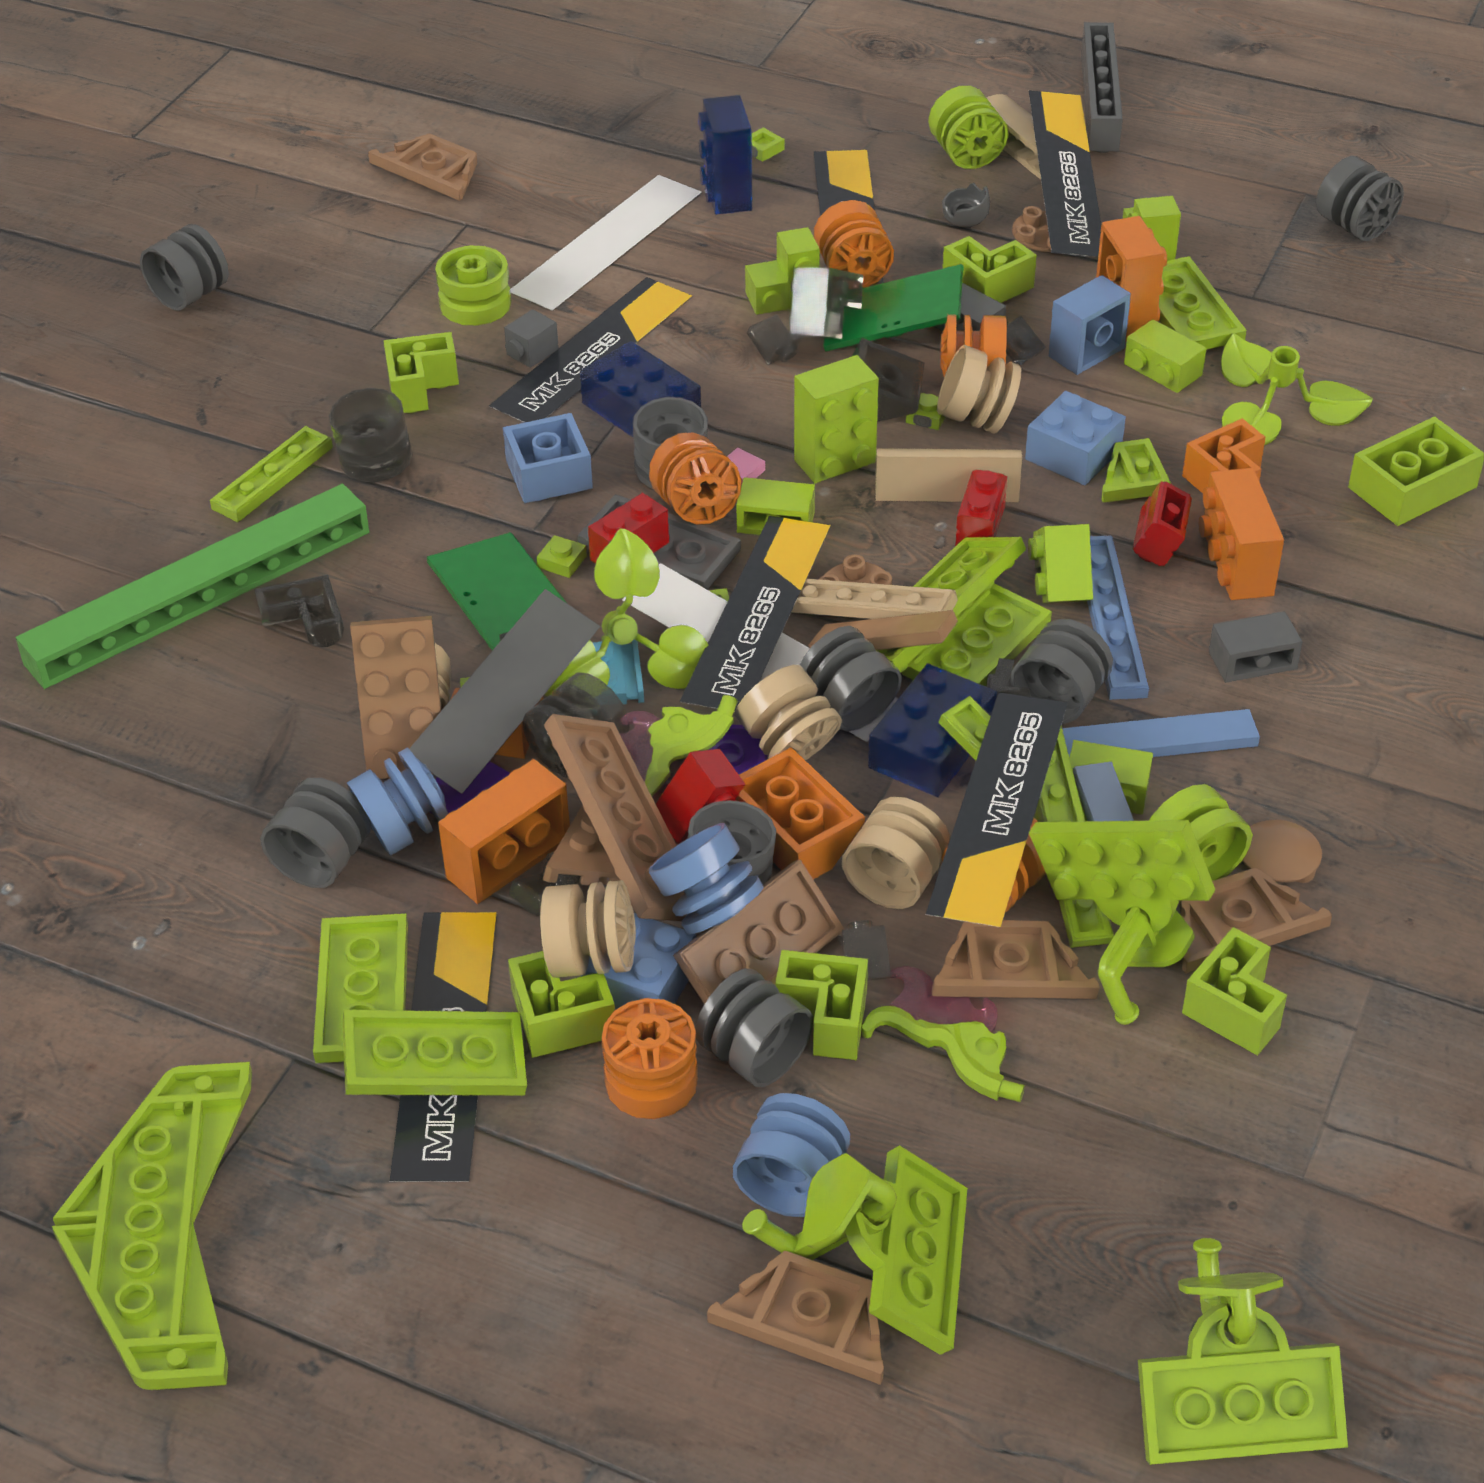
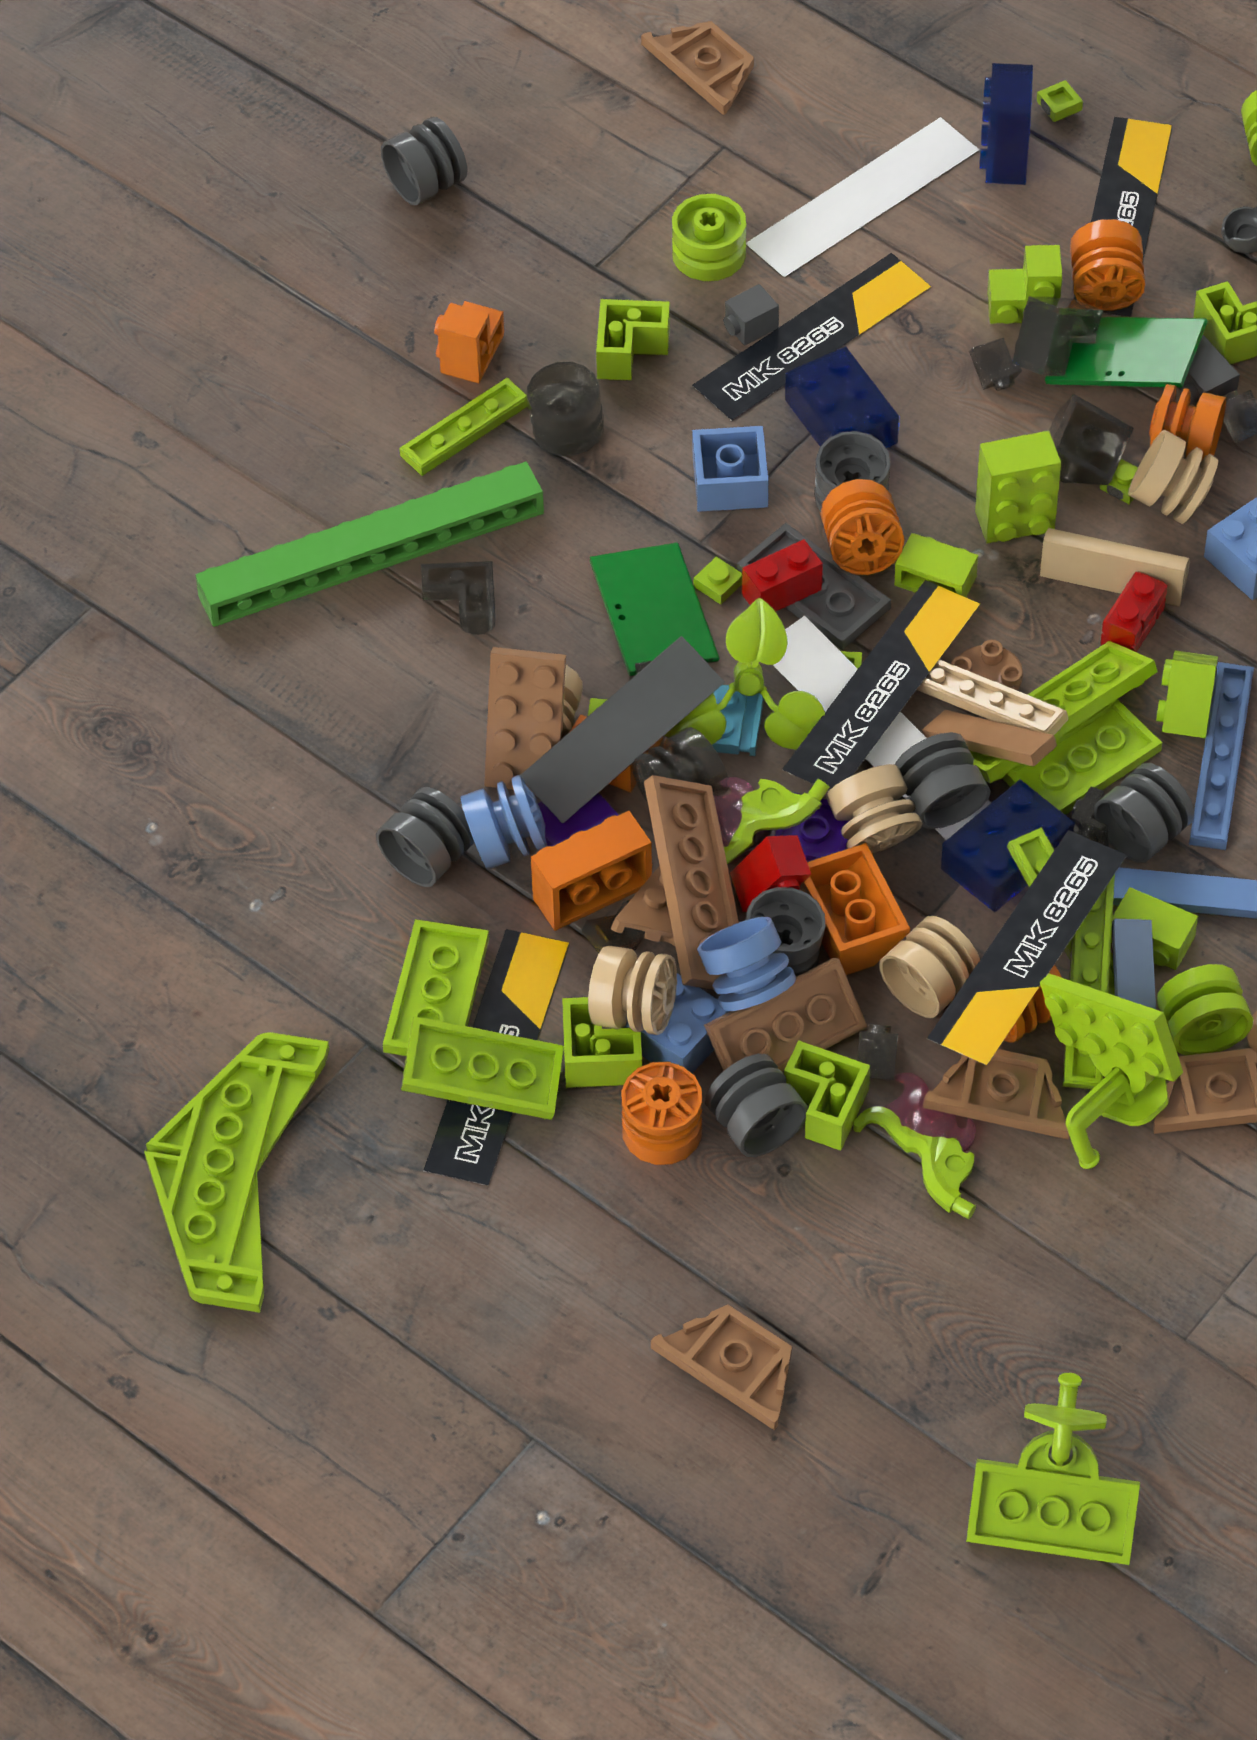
camera: 15 degrees right, 10 degrees up
(258, 397) = (468, 339): none -> orange brick
(747, 464) = (918, 512): bright pink tile -> none
(787, 1150) = (754, 1225): medium blue wheel -> none
(899, 1227) = (822, 1311): lime plate -> none
(1231, 994) = (1179, 1160): lime brick -> none

